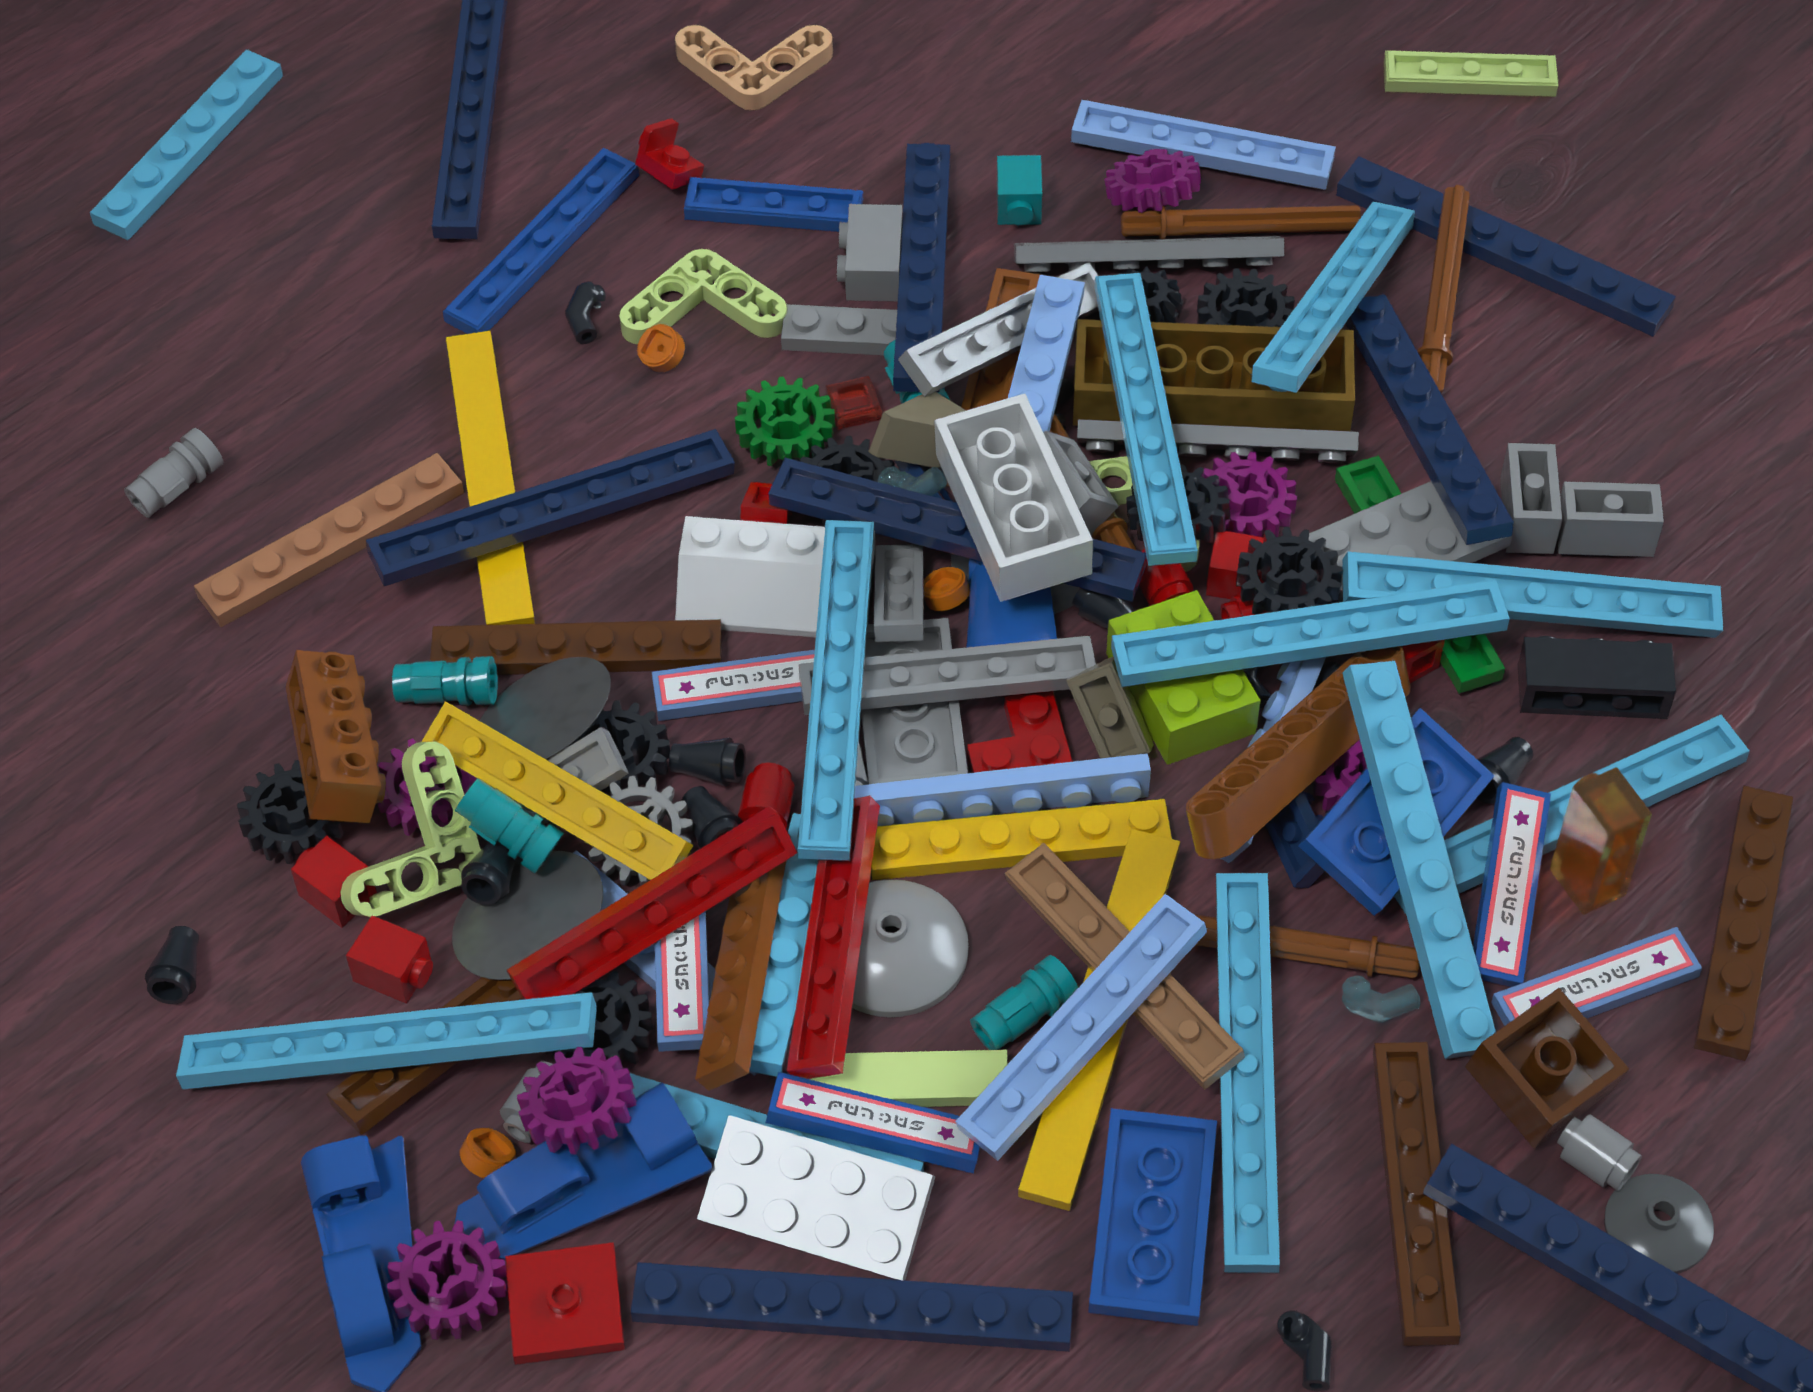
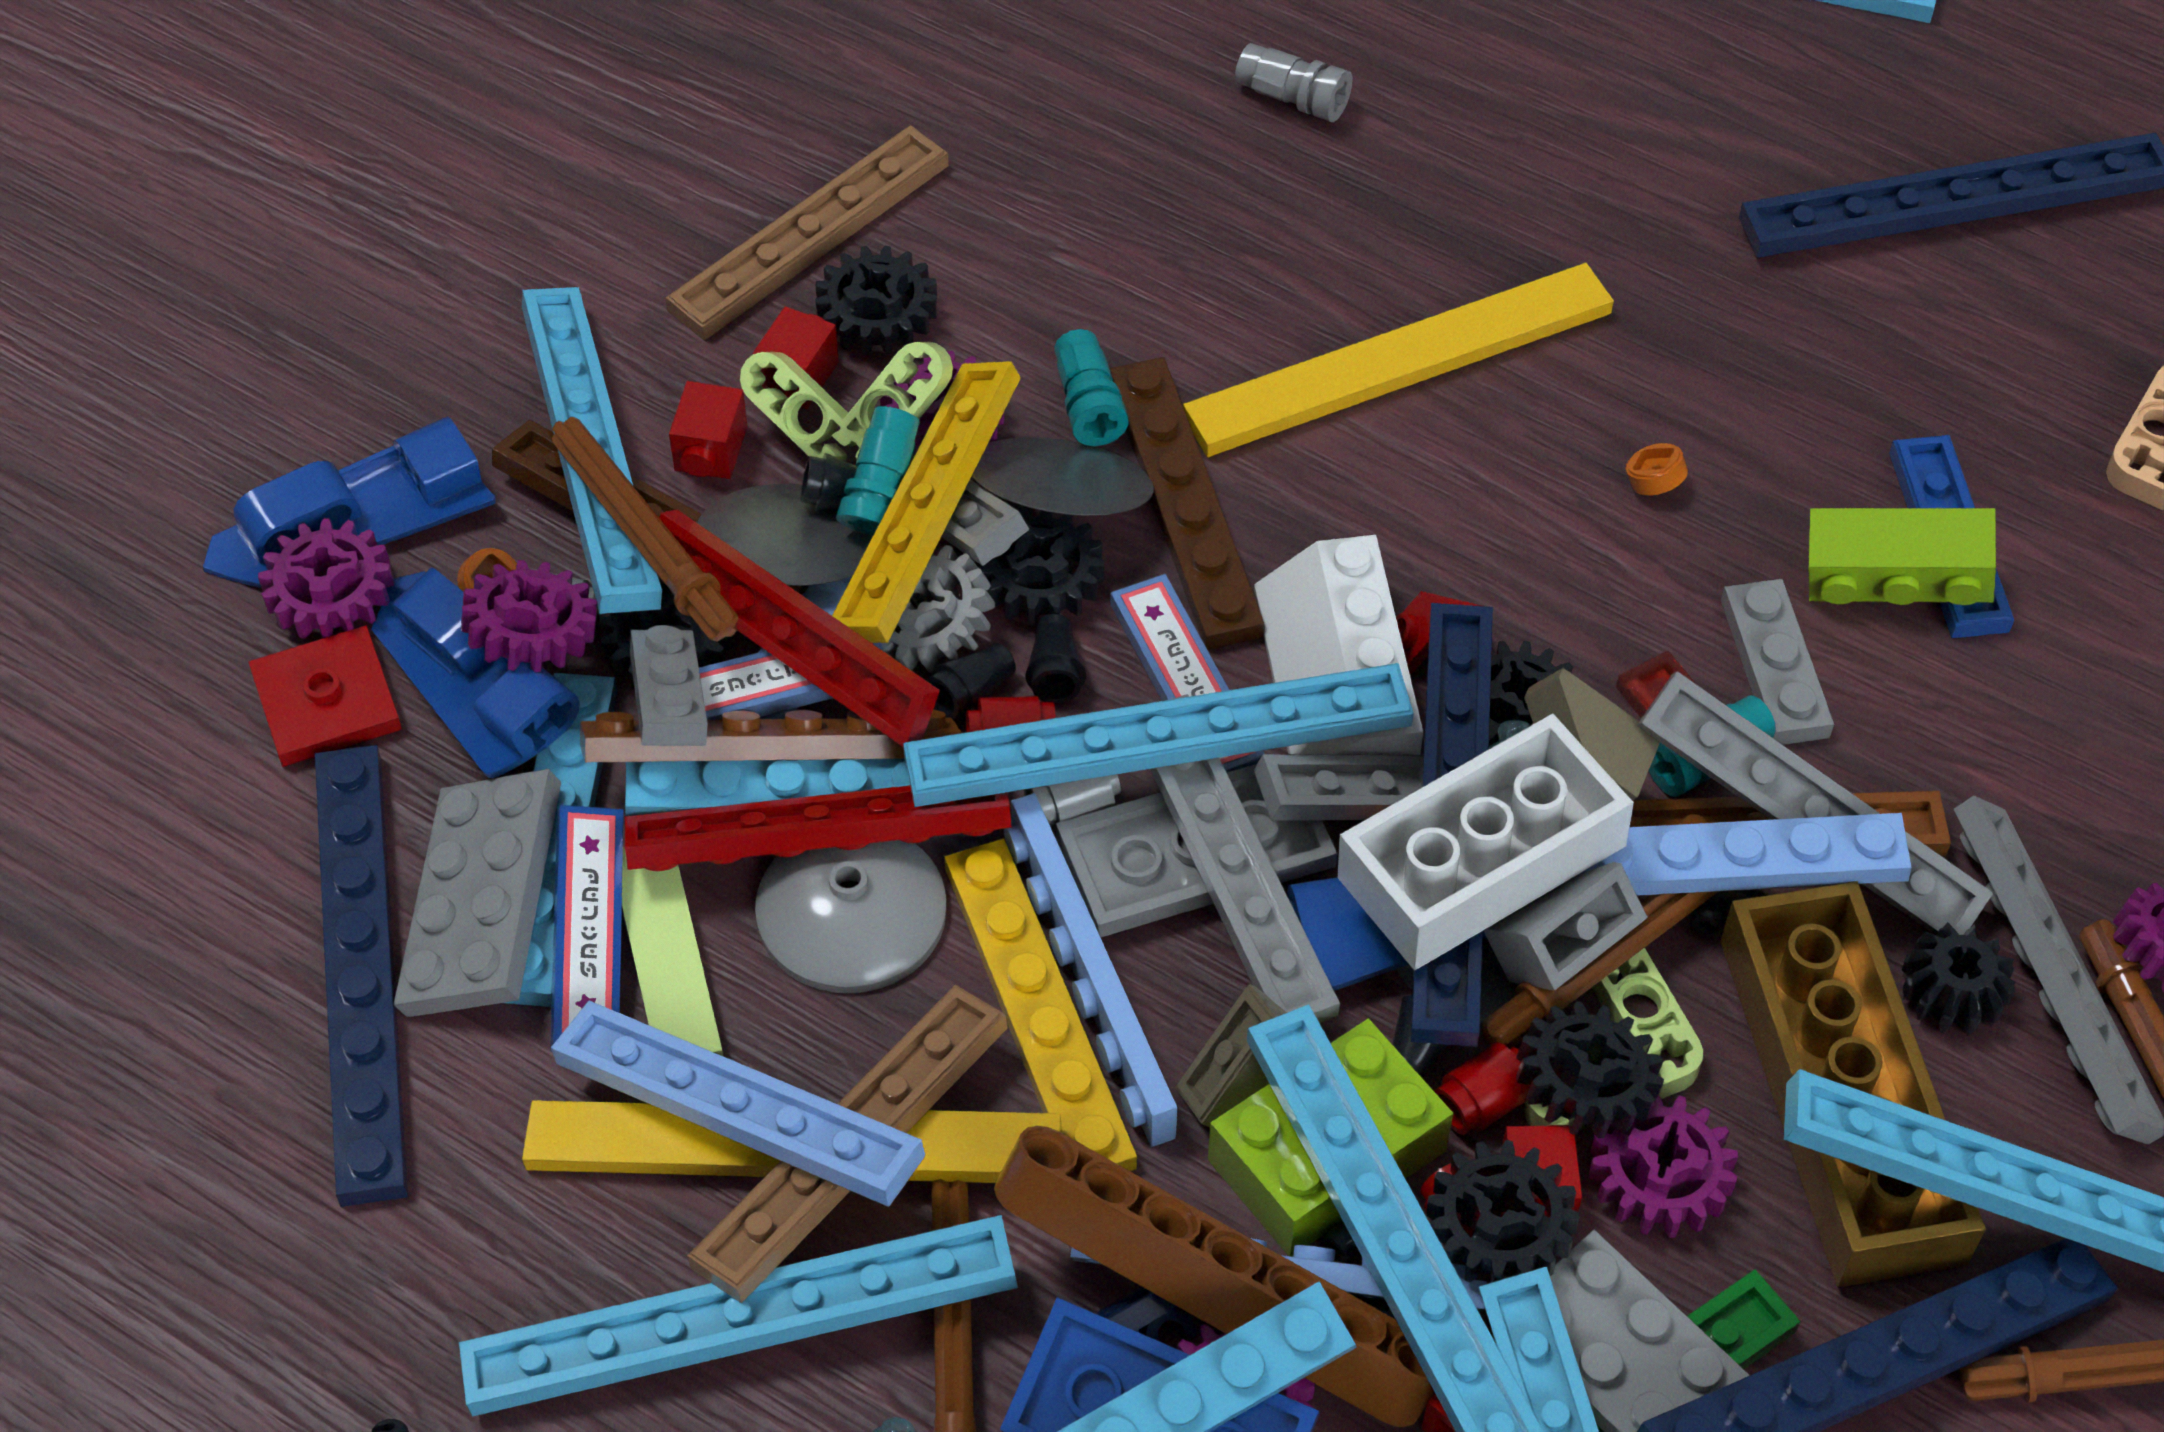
camera: 75 degrees right, 0 degrees up
(174, 968) = (663, 258): black cone -> none
(183, 857) = (806, 232): none -> medium nougat tile
(328, 539) = (1263, 241): nougat plate -> none
(334, 737) = (963, 293): dark orange brick -> none
(521, 994) = (695, 592): none -> dark orange axle
(541, 243) = (1783, 320): blue tile -> none
(549, 507) = (1366, 420): dark blue plate -> none
(584, 298) = (1684, 377): black arm -> none
(663, 159) = (1966, 399): red bracket -> none
(691, 1003) = (668, 687): none -> light grey plate
(700, 287) = (1773, 485): yellowish green beam -> none
(784, 420) = (1588, 617): green gear -> none
(800, 227) = (1902, 555): none -> lime brick
(872, 252) = (1907, 651): light grey brick -> none
(921, 252) = (1937, 699): dark blue plate -> none
(1019, 190) = (2094, 791): teal brick -> none
(1023, 1005) = (786, 1051): teal axle -> none
(1035, 738) = (1167, 998): red plate -> none
(1145, 420) = (1702, 983): medium azure tile -> none
(1153, 1217) = (518, 1253): blue plate -> none
(1196, 439) = (1759, 1136): light grey plate -> none
(1244, 301) = (2005, 1096): black gear -> none

